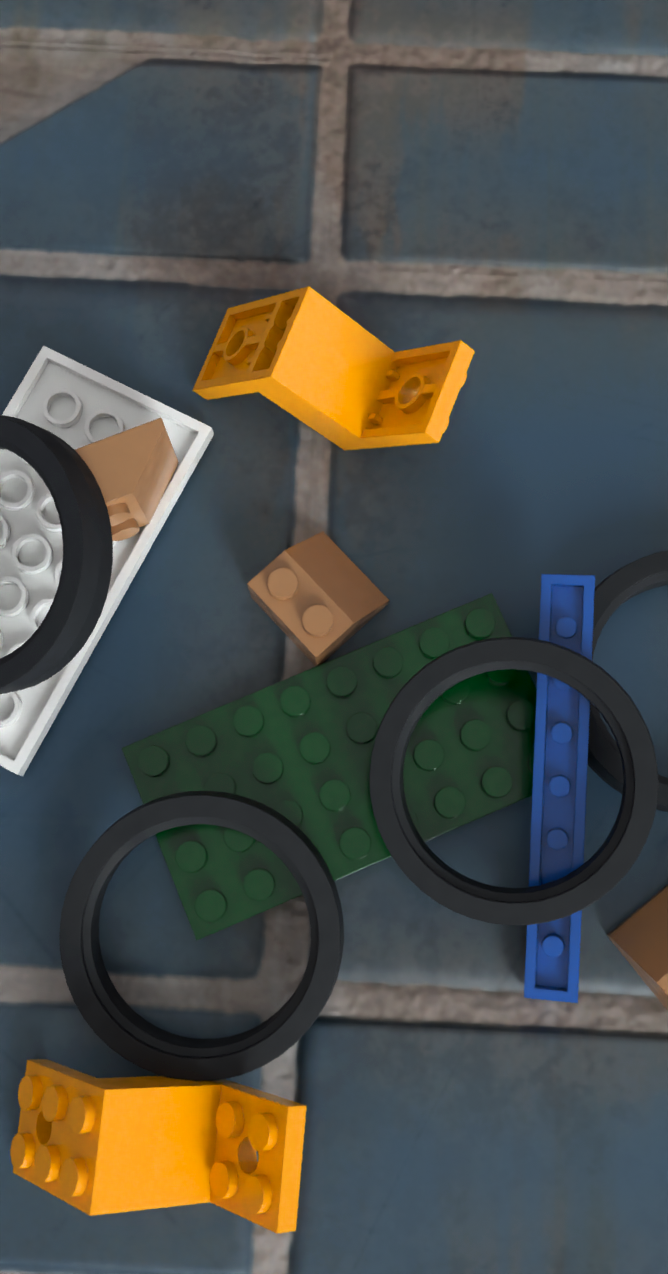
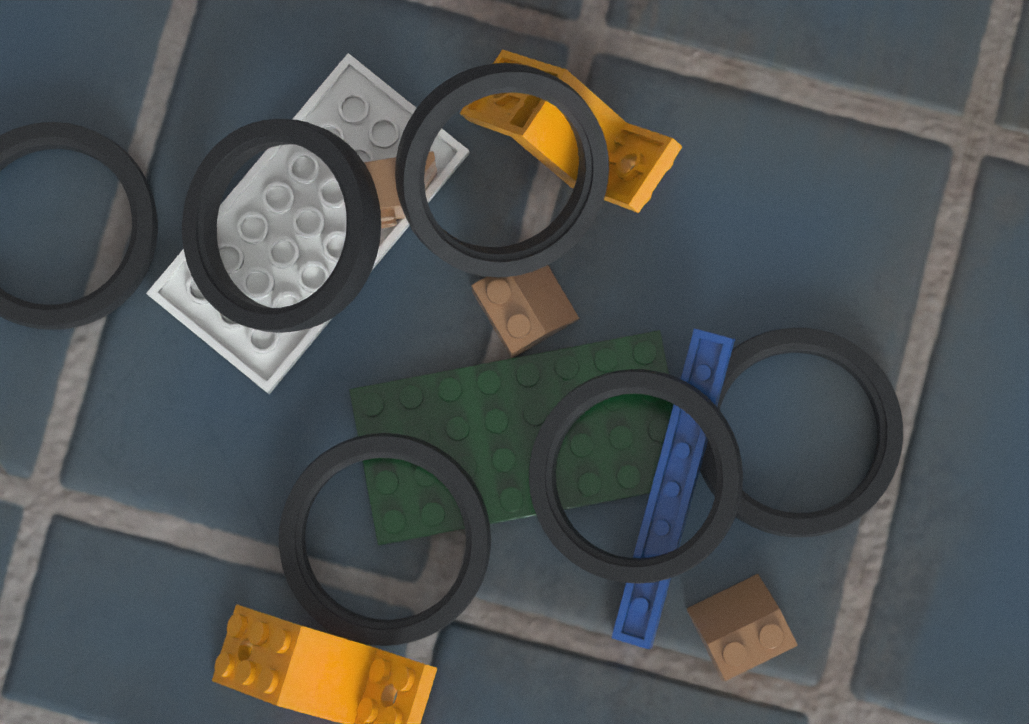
camera: 10 degrees right, 5 degrees up
(368, 417) = (570, 223): none -> black tyre

